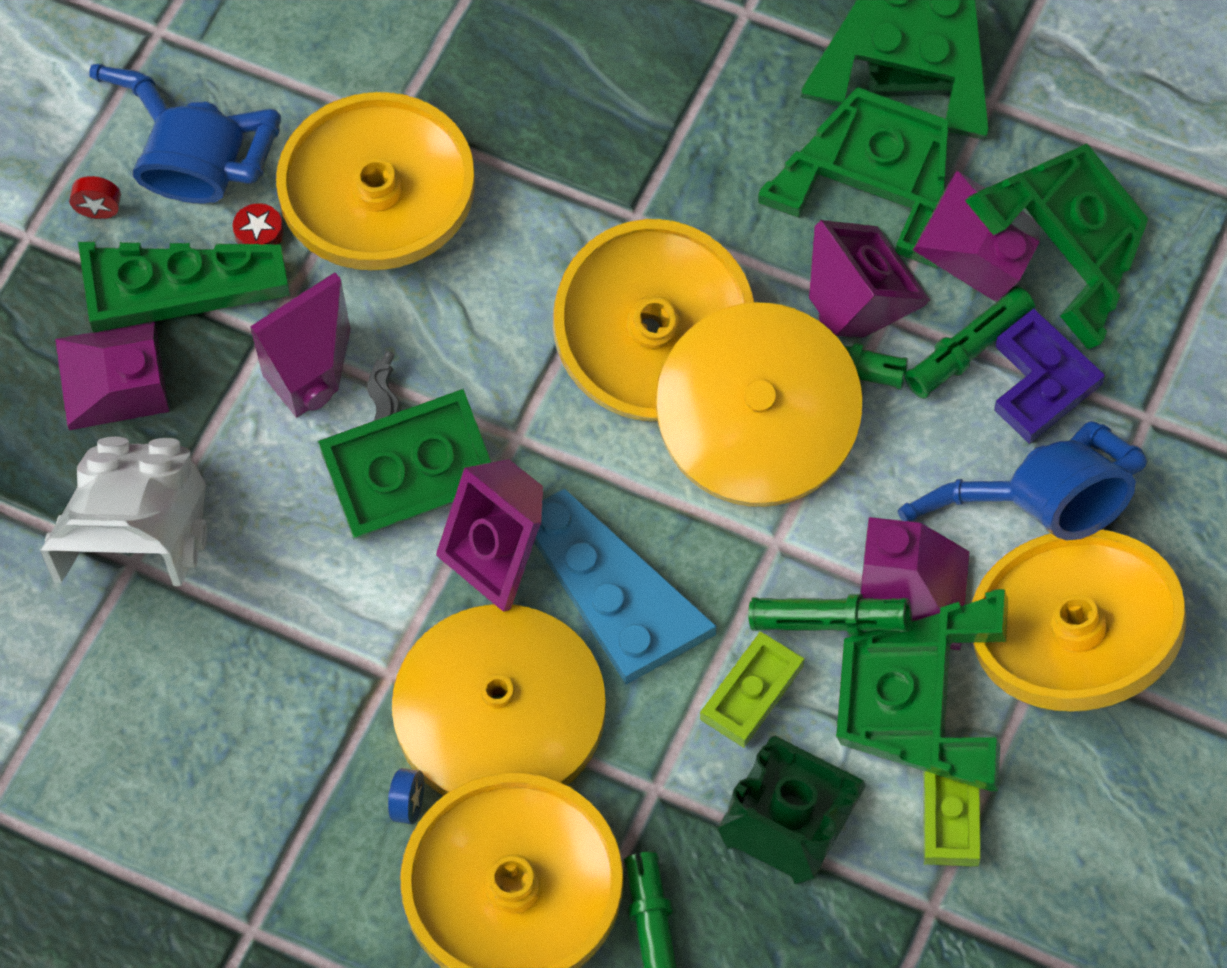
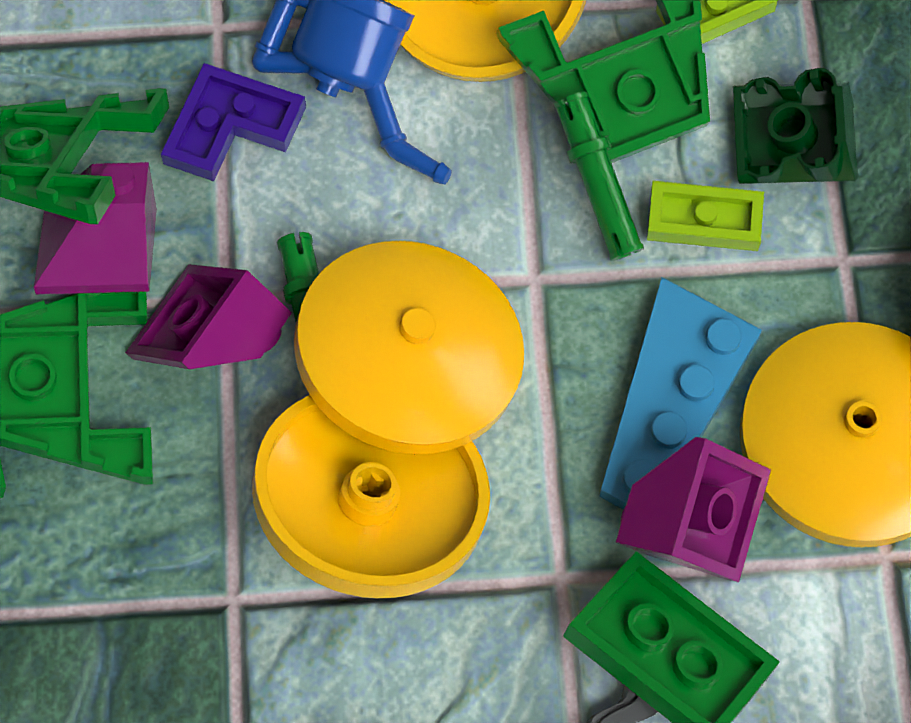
camera: 120 degrees left, 5 degrees up
(914, 564) = (513, 140): magenta slope -> none
(954, 354) = (245, 206): green pin -> none

